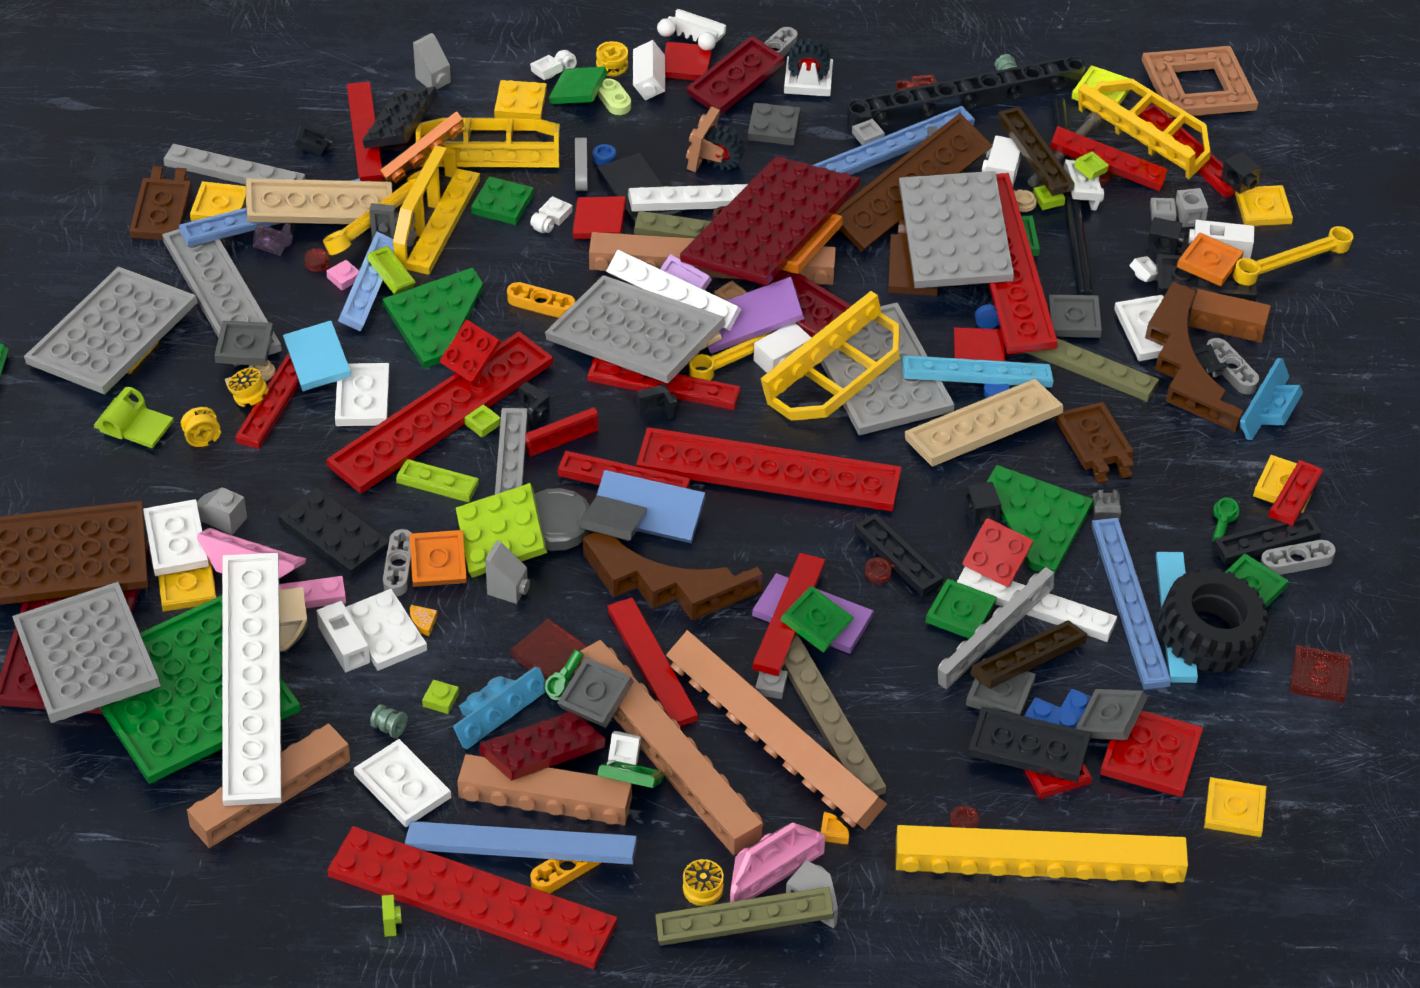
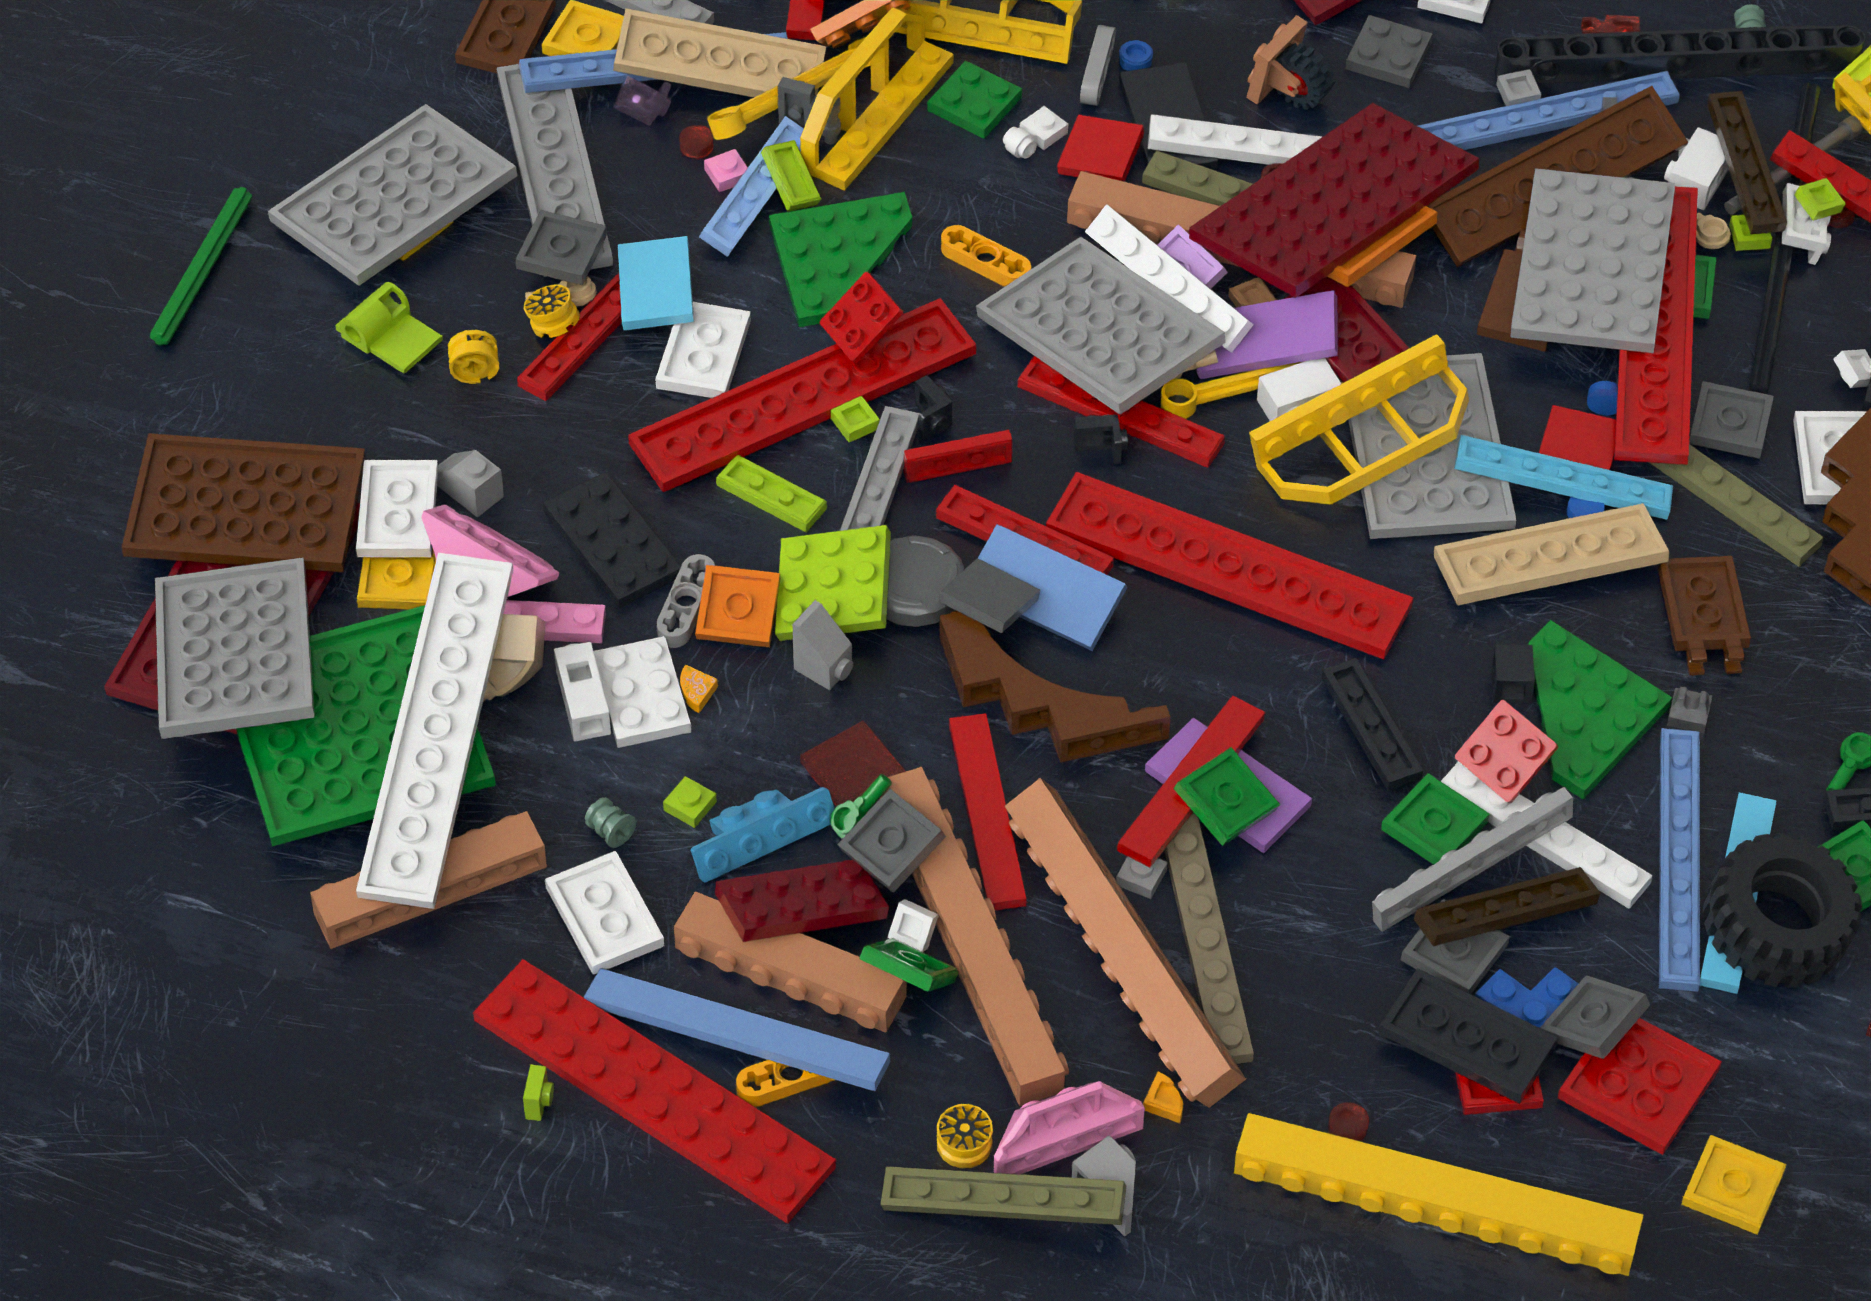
camera: 15 degrees right, 5 degrees up
(878, 570) = (1337, 741): clear red tile -> none

